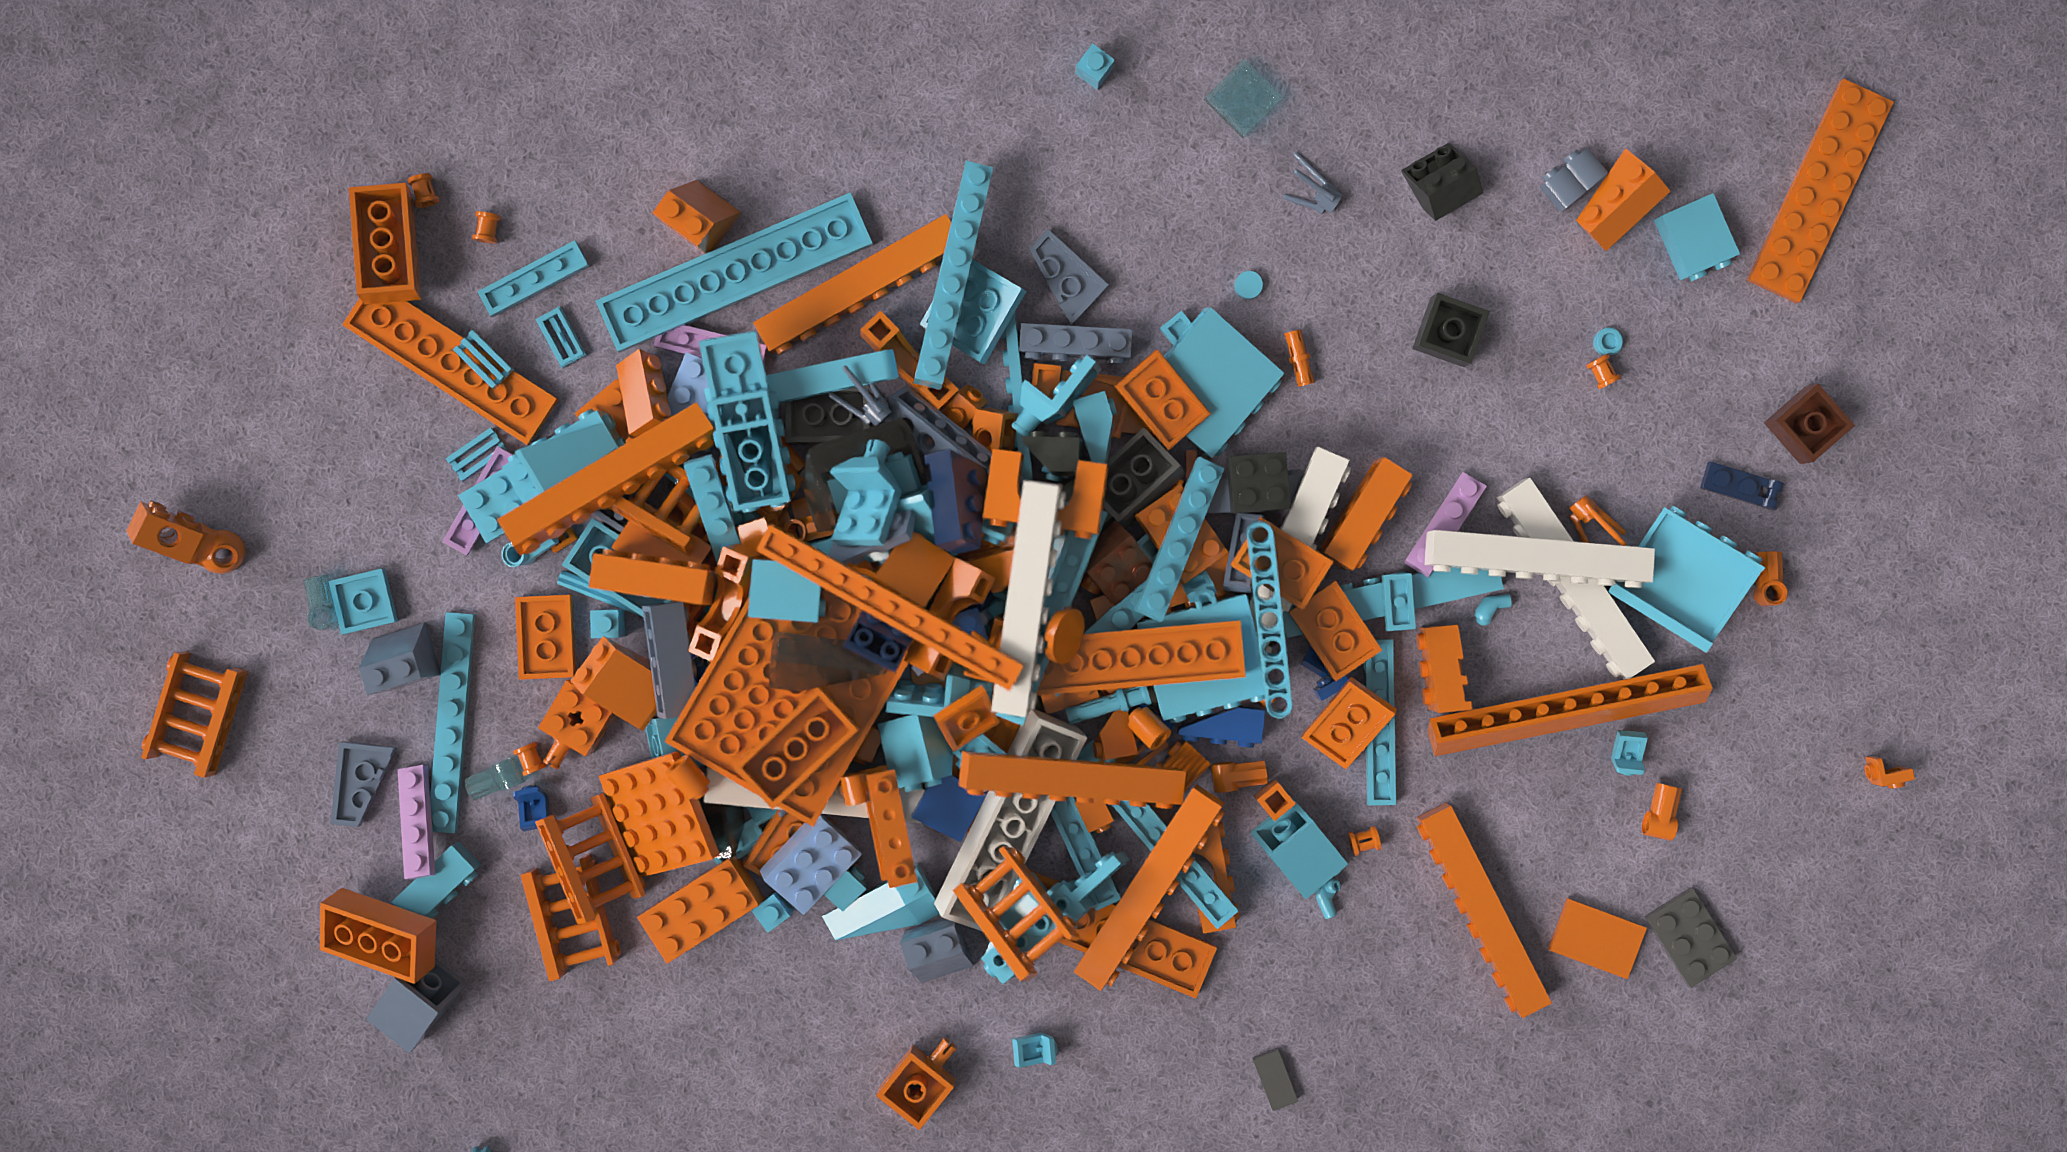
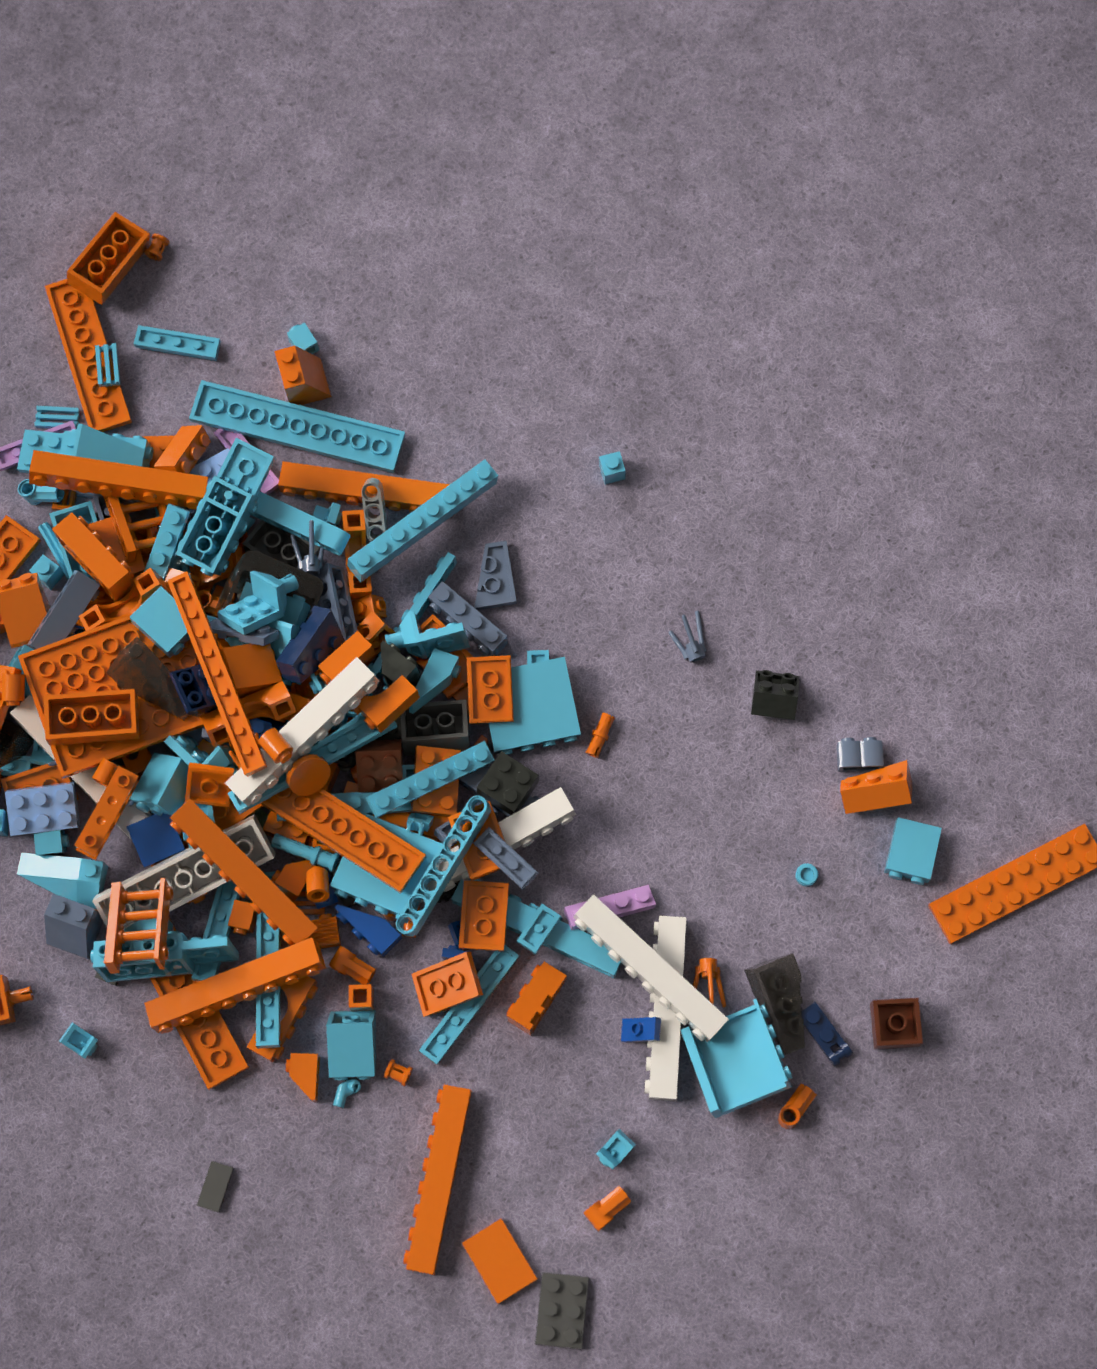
camera: 40 degrees right, 15 degrees down
(486, 227) = (174, 294): orange bush -> none
(572, 357) = (161, 404): medium azure tile -> none
(662, 174) = (302, 337): none -> medium azure brick
(845, 345) = (329, 515): none -> medium azure bracket
(886, 291) = (376, 500): none -> light grey beam
(984, 311) = (425, 557): medium azure plate -> none
(1018, 637) = (276, 746): none -> orange brick
(1243, 98) = (689, 553): clear light blue plate -> none
(1248, 285) = (604, 668): medium azure tile -> none
(1275, 911) = (304, 1071): none -> orange slope
(1324, 563) = (506, 858): none -> sand blue tile
(1365, 514) = (567, 858): orange brick -> none
(1451, 330) = (707, 787): pearl dark grey brick -> none
(1489, 605) = (599, 983): medium azure arm -> none
(1568, 620) = (641, 1029): none -> blue plate
(1569, 710) = (596, 1088): orange brick -> none
(1603, 371) = (788, 889): orange bush -> none
(1669, 479) = (778, 988): none -> clear smoke wedge
(1891, 777) = (779, 1306): orange bracket -> none

